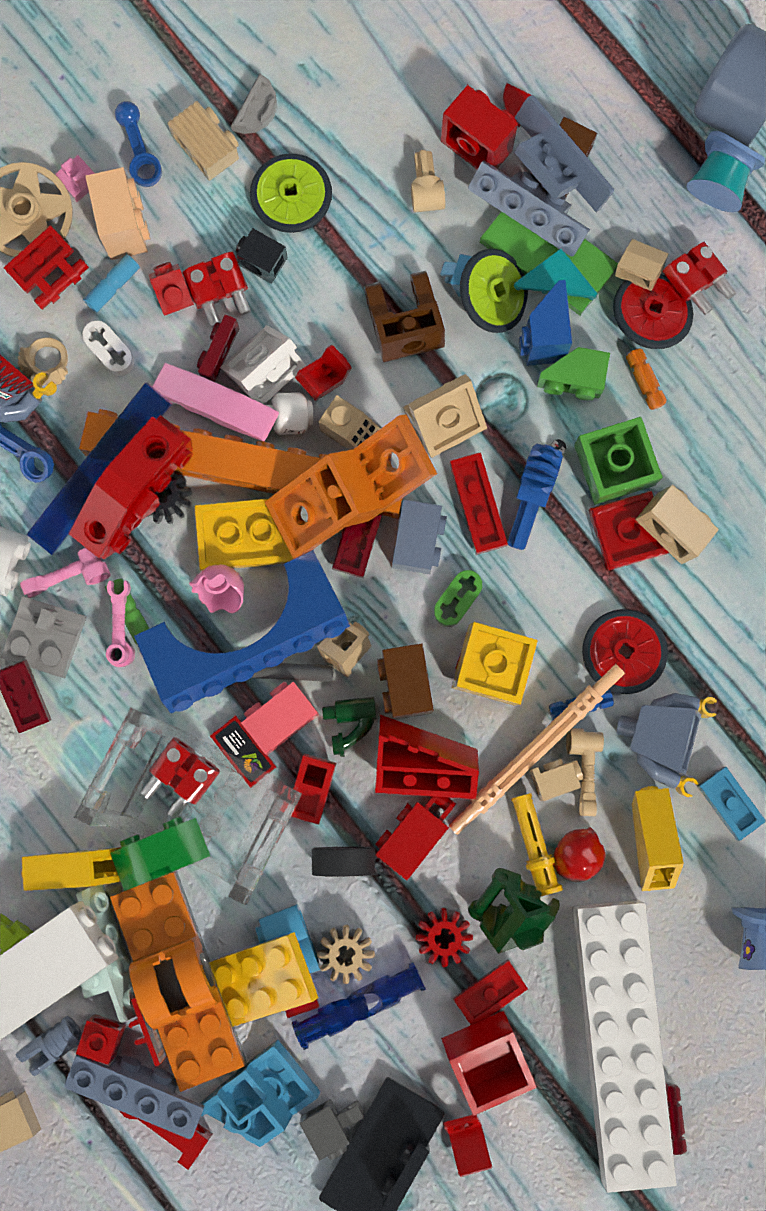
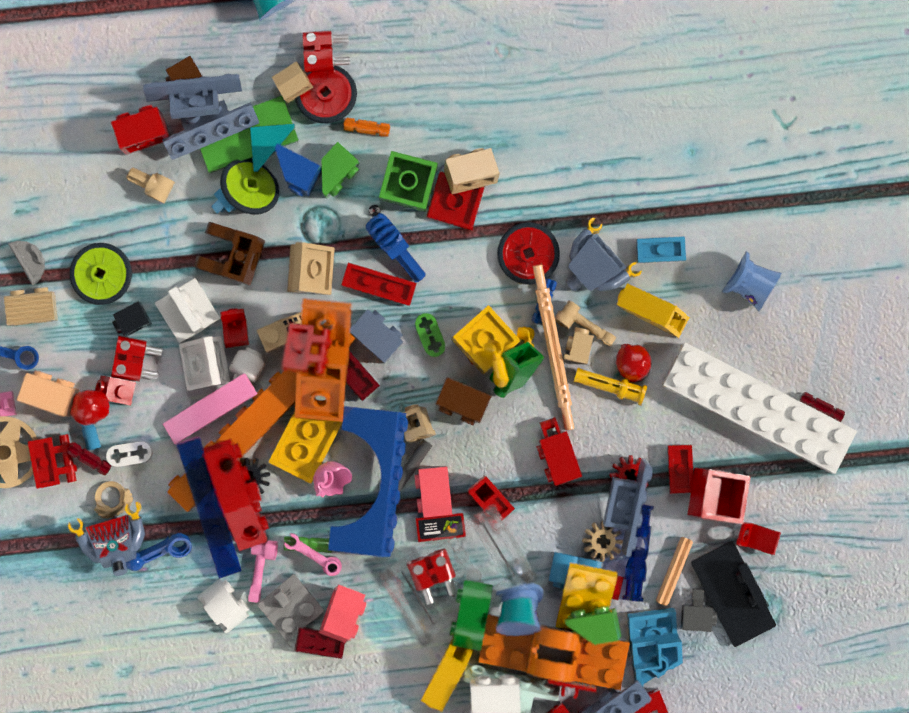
camera: 60 degrees left, 5 degrees up
(69, 700) = (342, 614): none -> coral brick
(74, 305) = (88, 458): none -> dark red axle
(131, 266) = (89, 407): none -> red hair
(199, 907) = (519, 610): none -> hat
(222, 339) = (180, 393): dark red plate -> none
(236, 1014) = (596, 626): none -> bright green slope
(311, 310) = (187, 310): none -> white bracket
(343, 861) = (546, 507): black tyre -> none
(346, 444) = (298, 349): none -> red plate
(351, 711) = (458, 445): dark green plant -> none
(364, 1064) = (674, 571): none -> light nougat axle
(407, 955) = (625, 505): none -> sand blue bracket
(423, 763) = (518, 421): red wedge -> none
(485, 716) = (515, 365): none -> green torso
(513, 99) = (132, 90): red tile -> none
(521, 922) = (649, 421): dark green piece -> none

